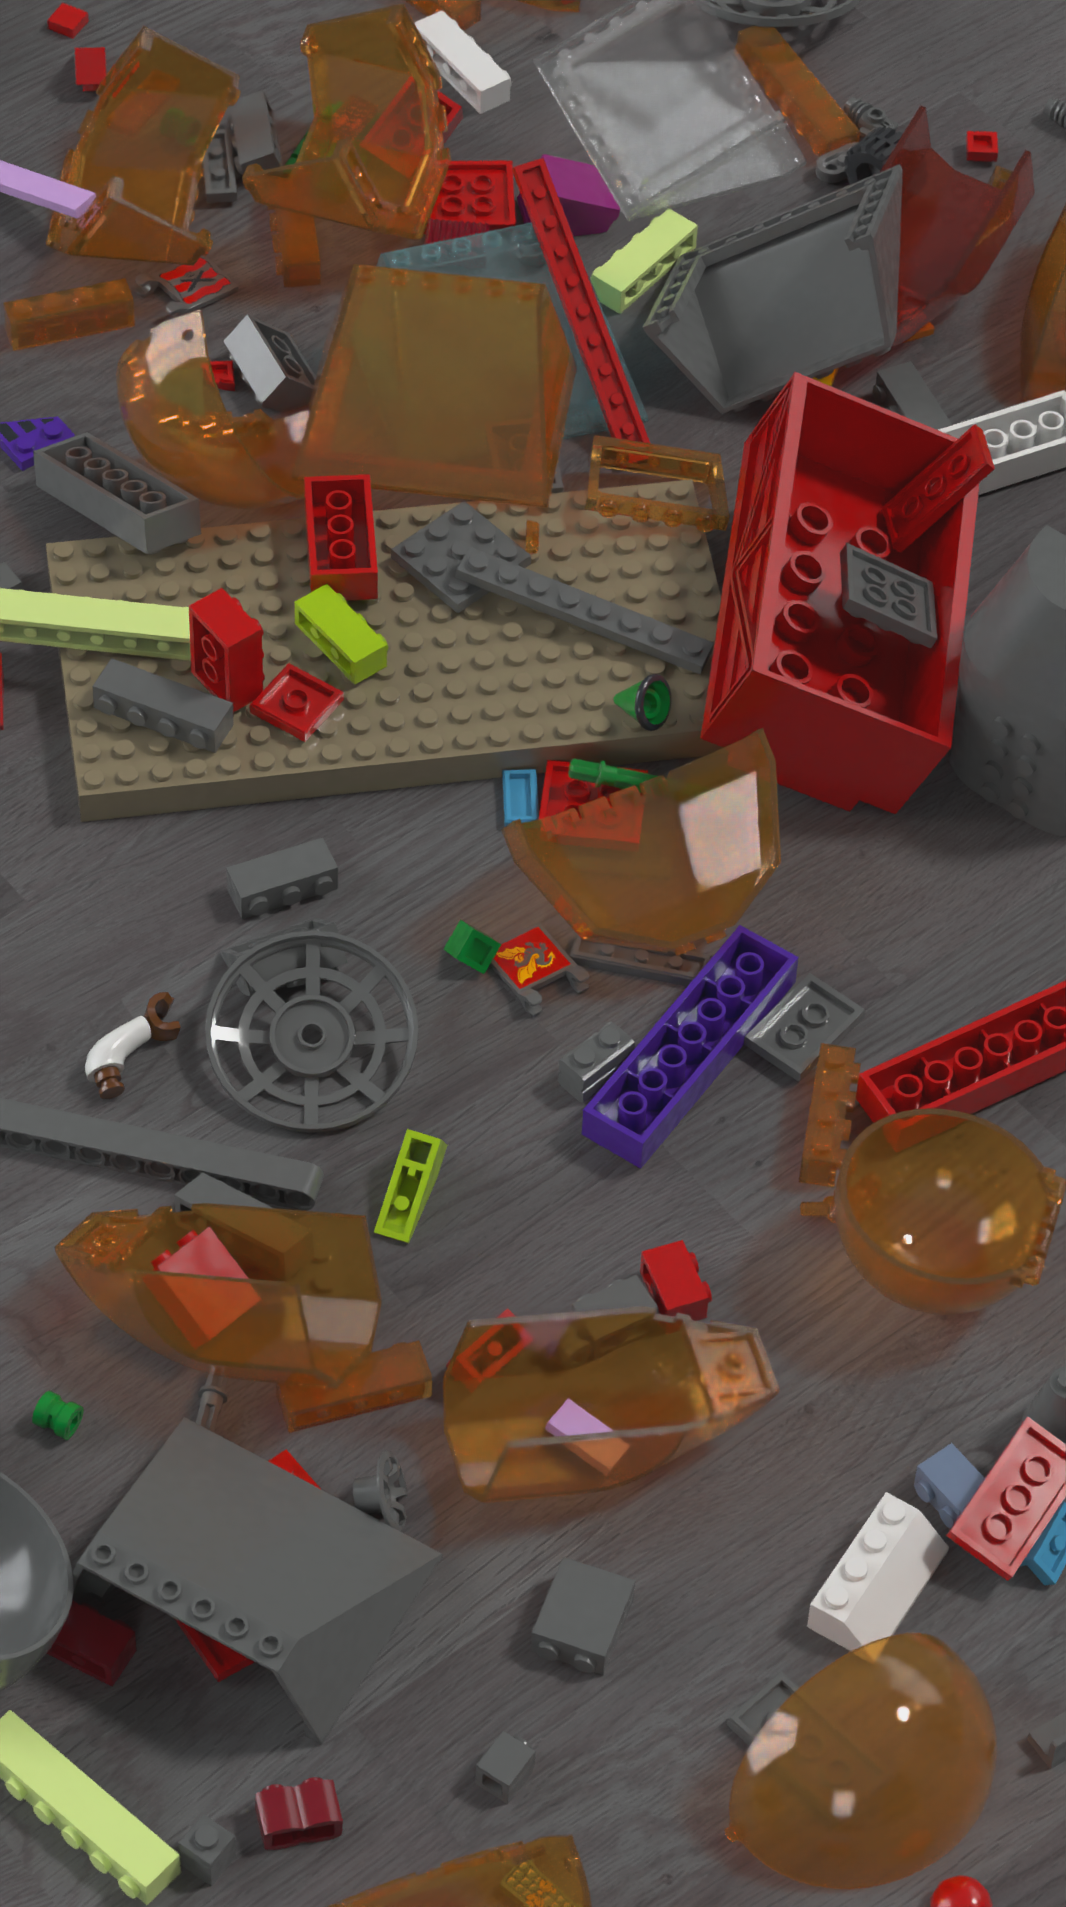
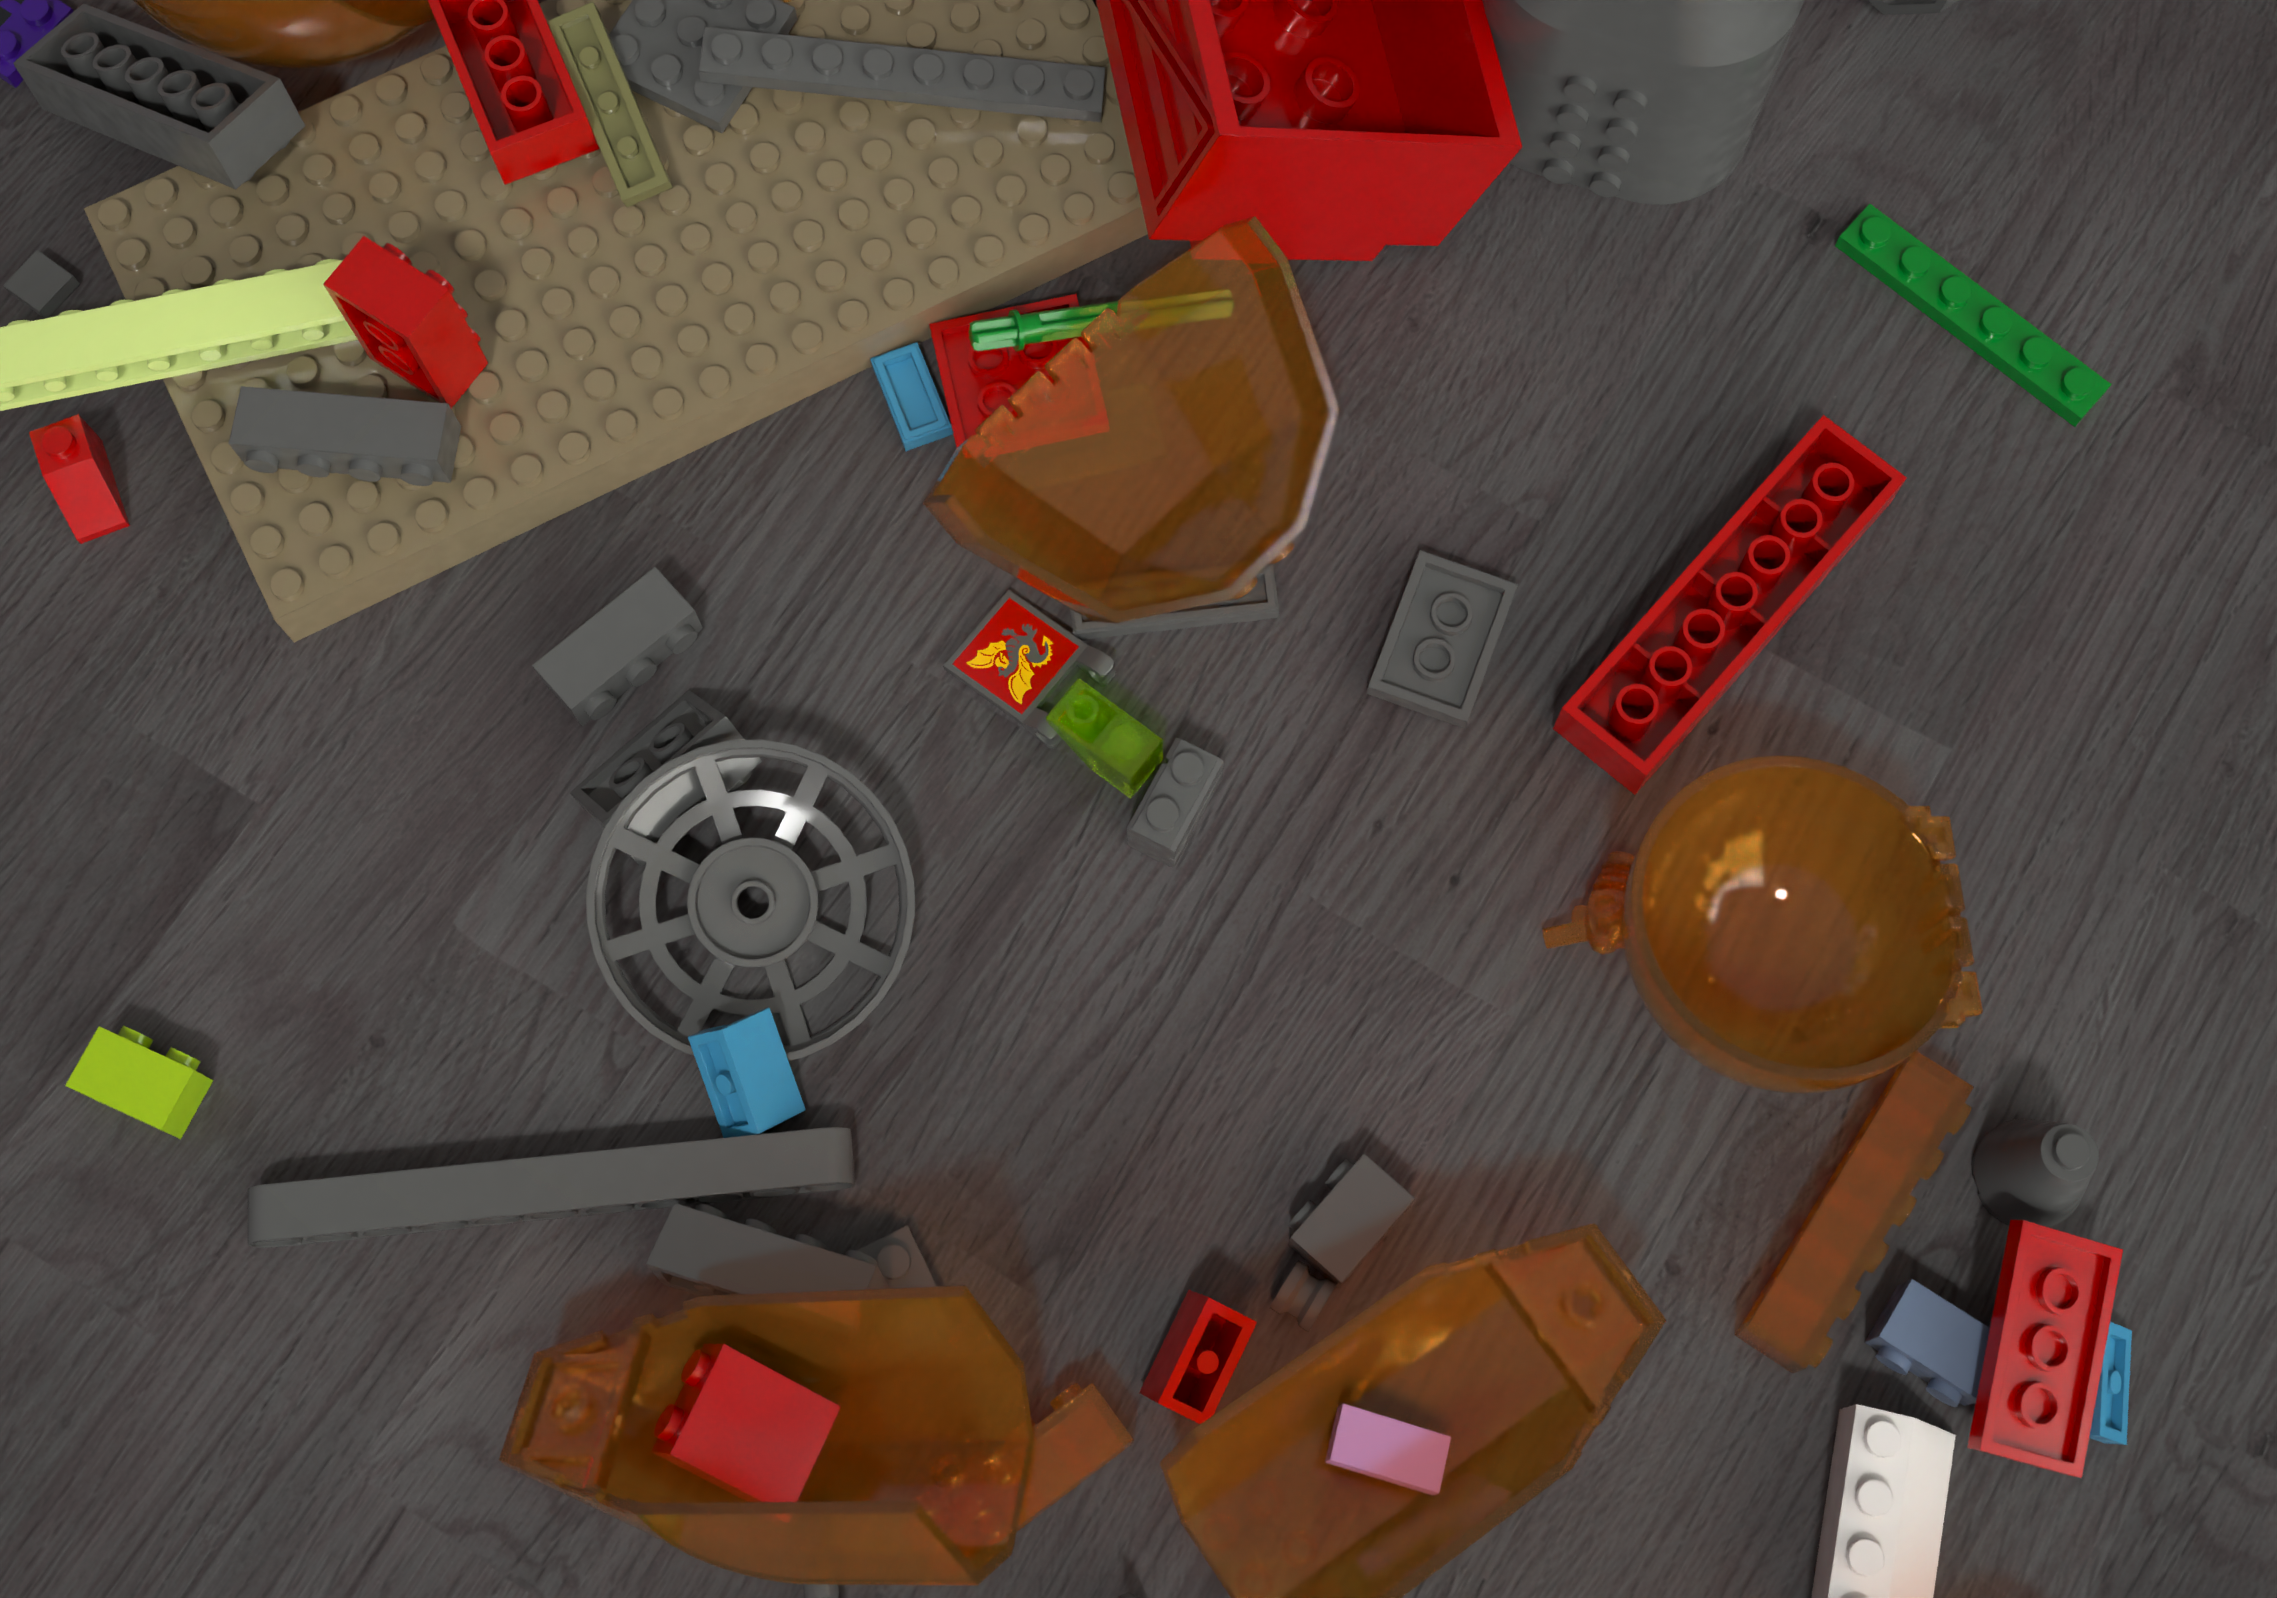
camera: 15 degrees left, 20 degrees up
(107, 1056) = (467, 1036): piece -> none
(272, 1120) = (747, 1075): none -> dark azure panel
(296, 702) = (541, 360): red tile -> none
(341, 633) = (567, 226): lime brick -> none
(394, 574) = (609, 104): none -> olive plate
(410, 1185) = (982, 1106): lime slope -> none
(472, 946) = (930, 668): green panel -> none
(566, 1011) = (1106, 737): none -> clear neon green slope
(647, 701) = (1045, 198): green hat -> none
(674, 1281) = (1419, 1136): red brick -> none
(689, 1046) = (1298, 735): dark purple brick -> none
(827, 1115) = (1531, 777): clear orange brick -> none
(934, 1407) = (1855, 1212): none -> clear orange brick

